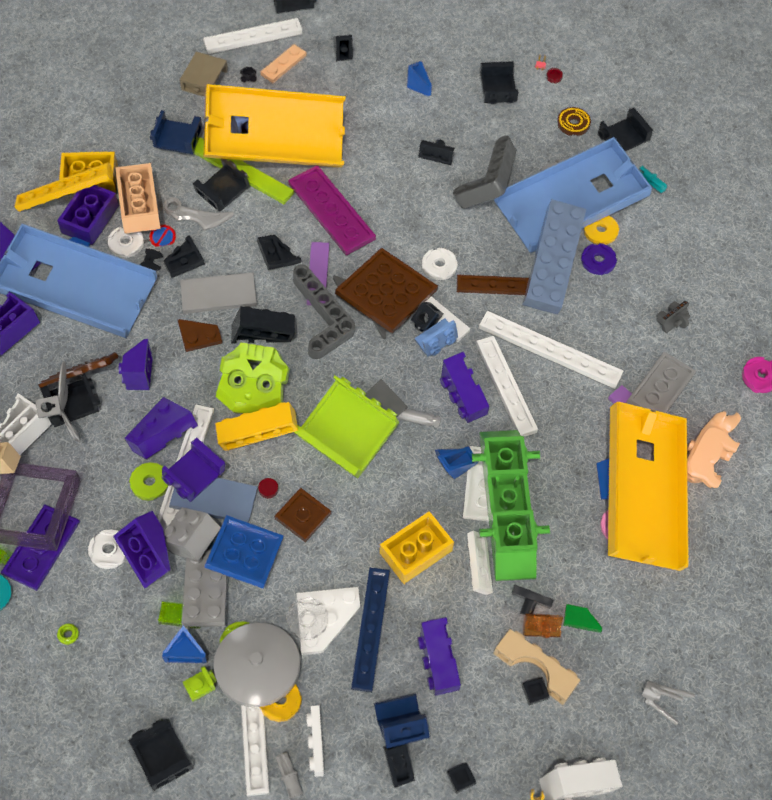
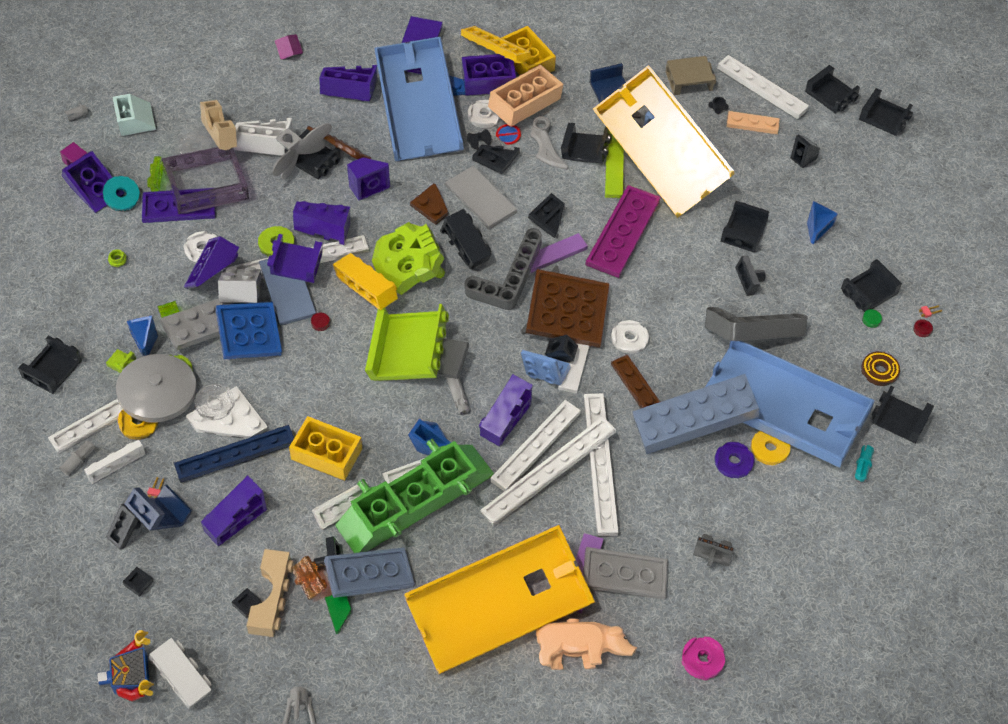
camera: 60 degrees right, 5 degrees down
(302, 515) = (309, 356): reddish brown plate -> none
(368, 721) = (155, 492): none -> piece
(386, 127) = (745, 226): none -> black panel
(526, 100) = (872, 318): none -> green tile
(538, 390) = (548, 471): none -> white tile
(563, 574) = (369, 572): none -> sand blue tile

